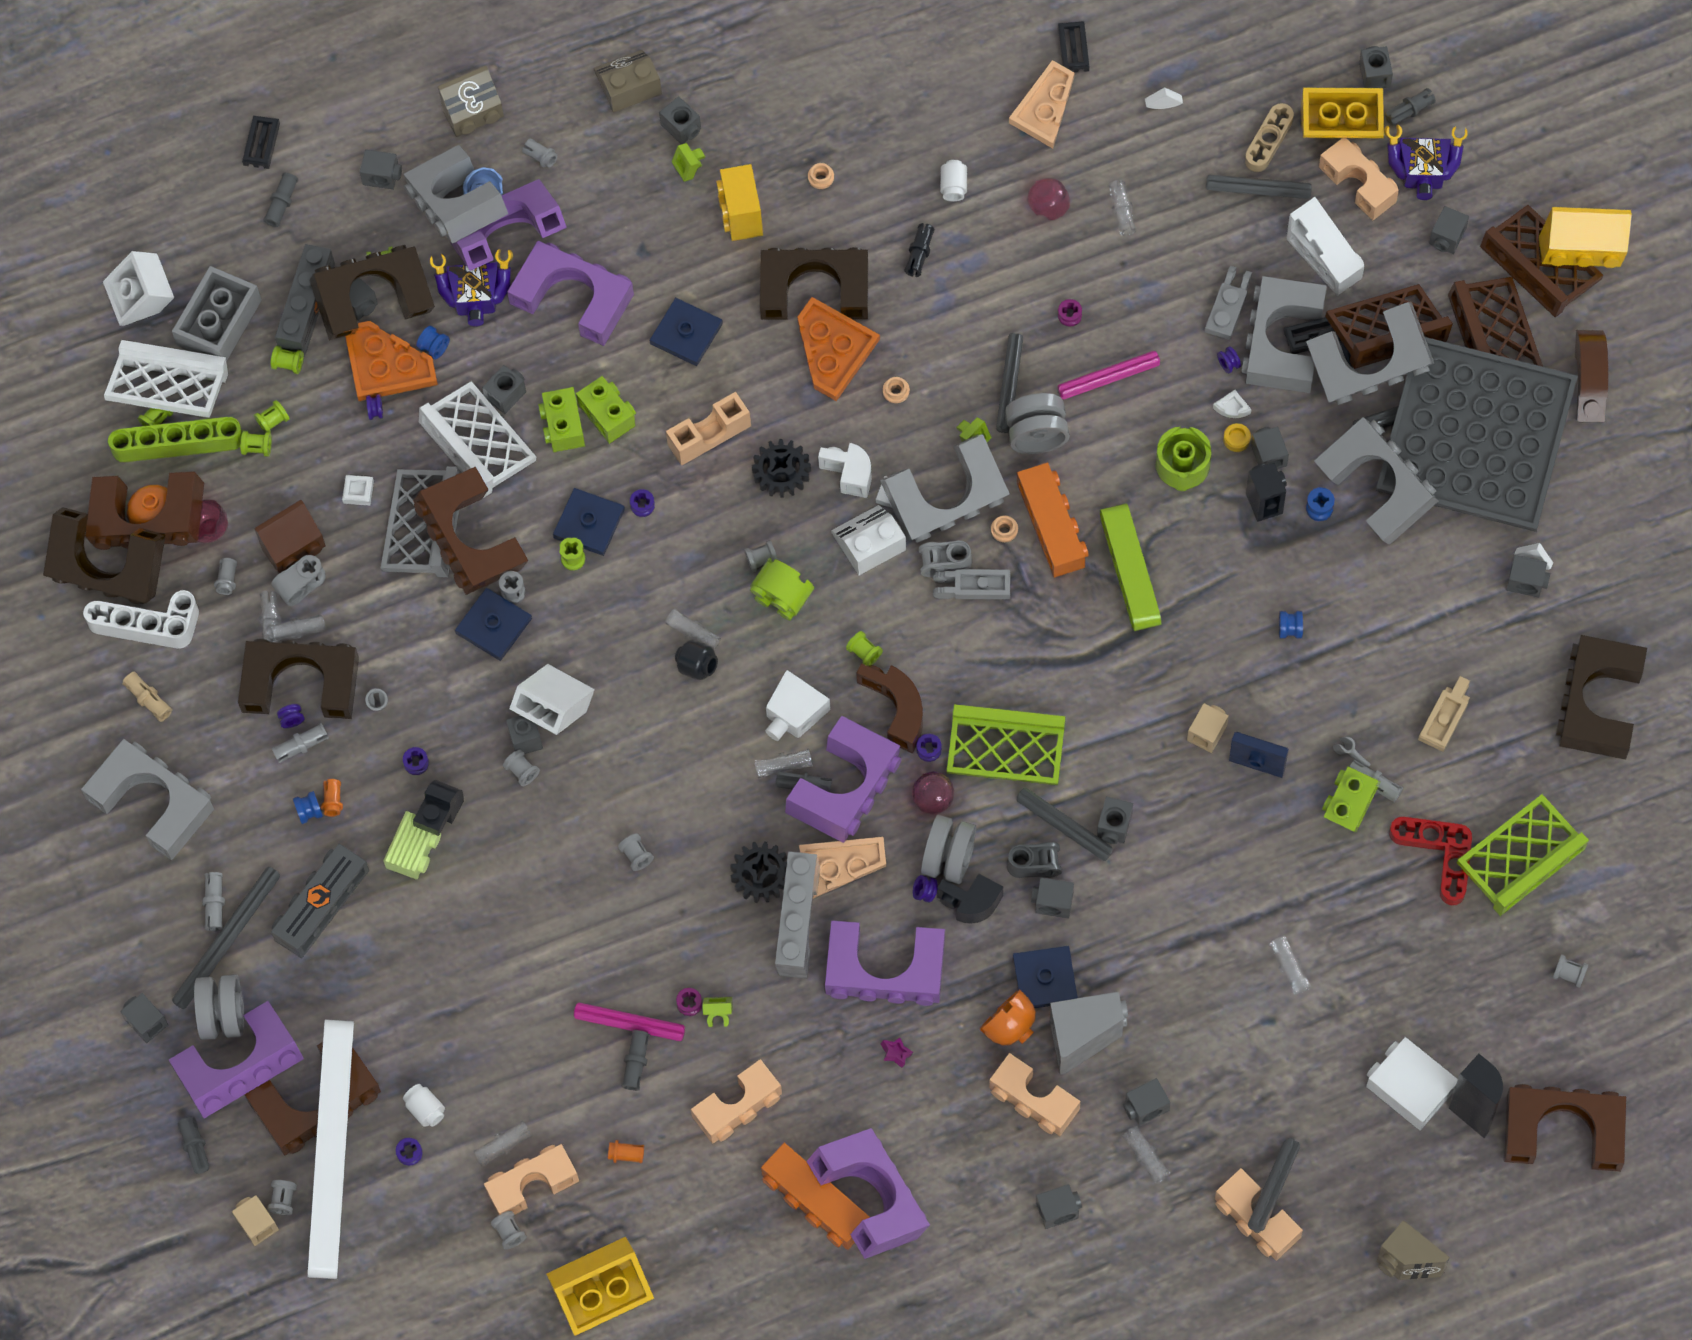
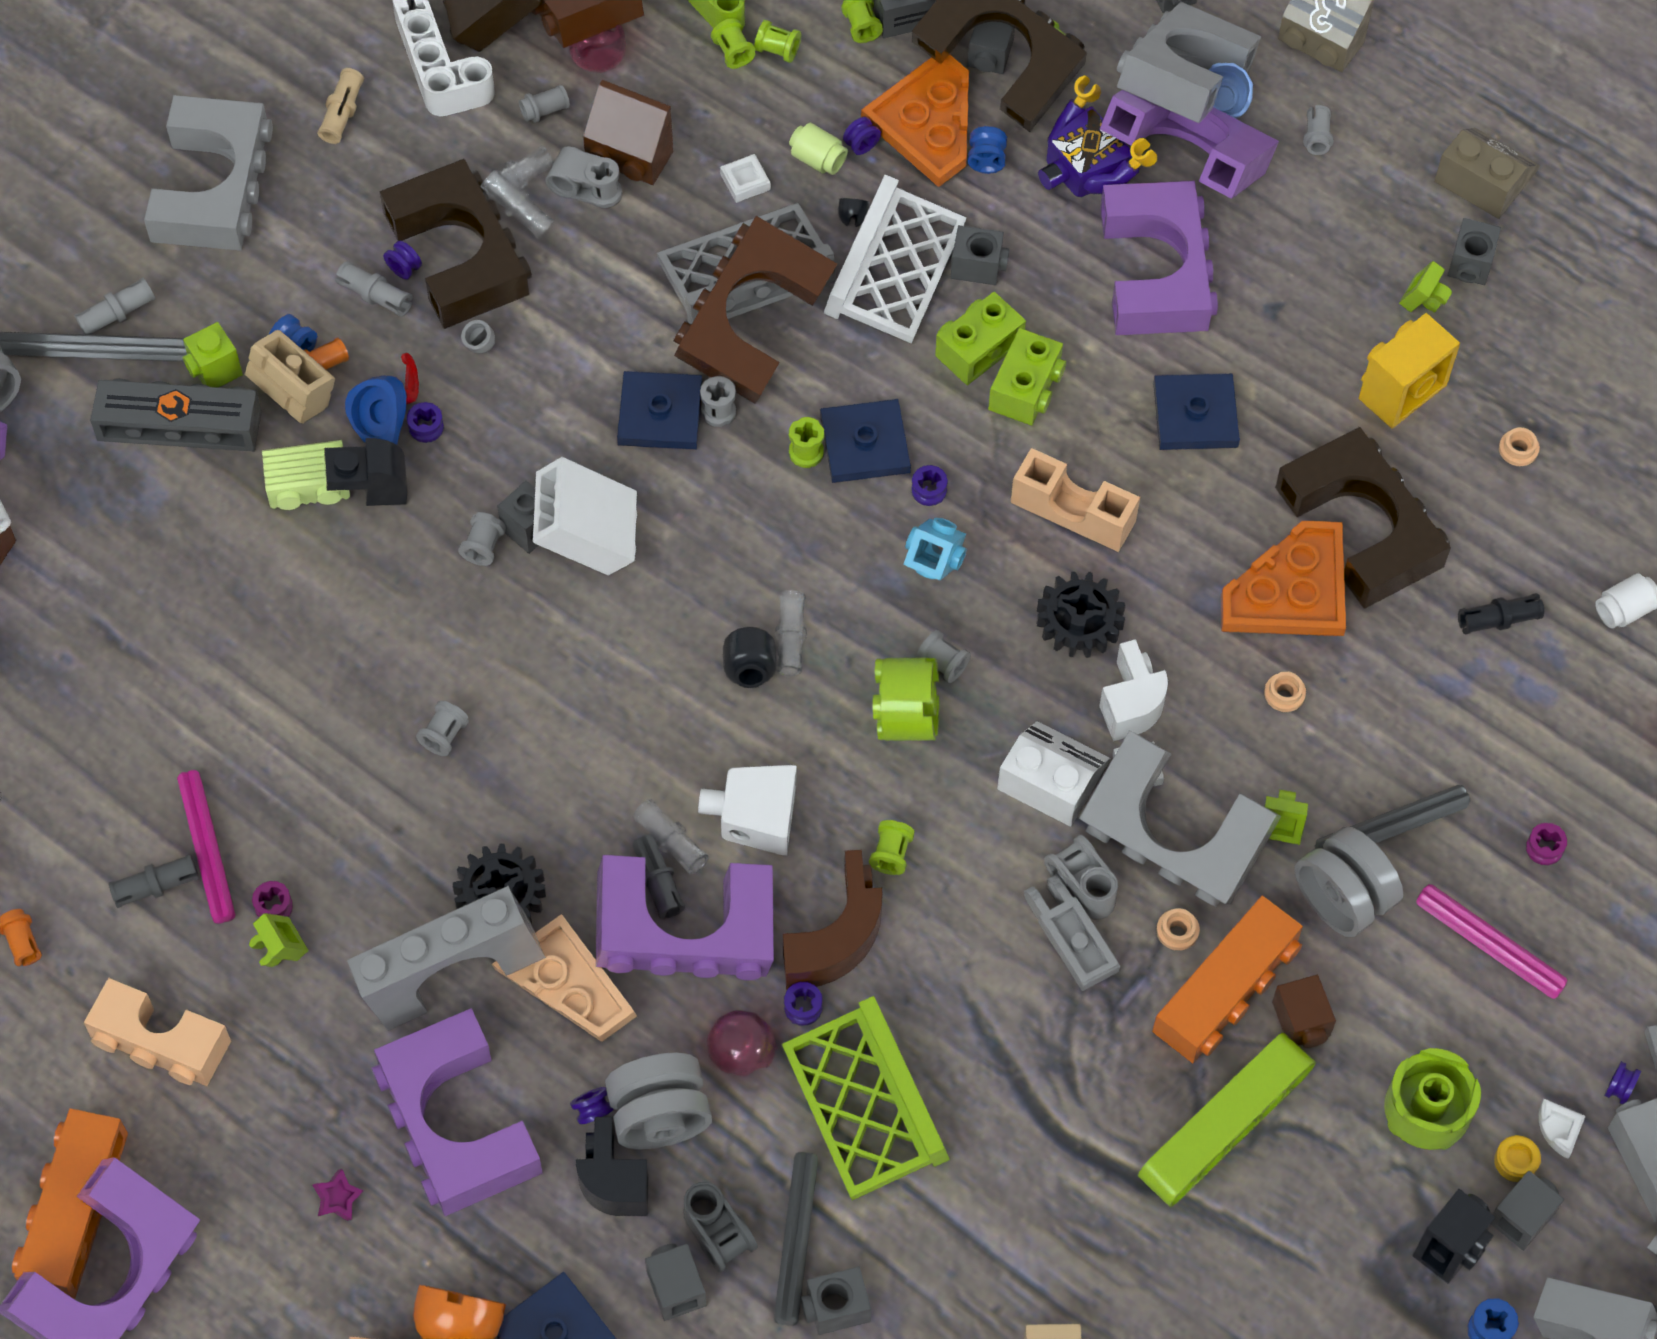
camera: 55 degrees right, 5 degrees down
(292, 859) = (212, 356): none -> lime brick
(339, 820) = (289, 376): none -> tan brick
(368, 436) = (818, 148): none -> yellowish green brick
(393, 780) = (379, 404): none -> blue piece
(425, 441) = (852, 208): none -> black hinge
(691, 521) = (925, 555): none -> medium azure brick
(1093, 492) = (1304, 1011): none -> reddish brown brick

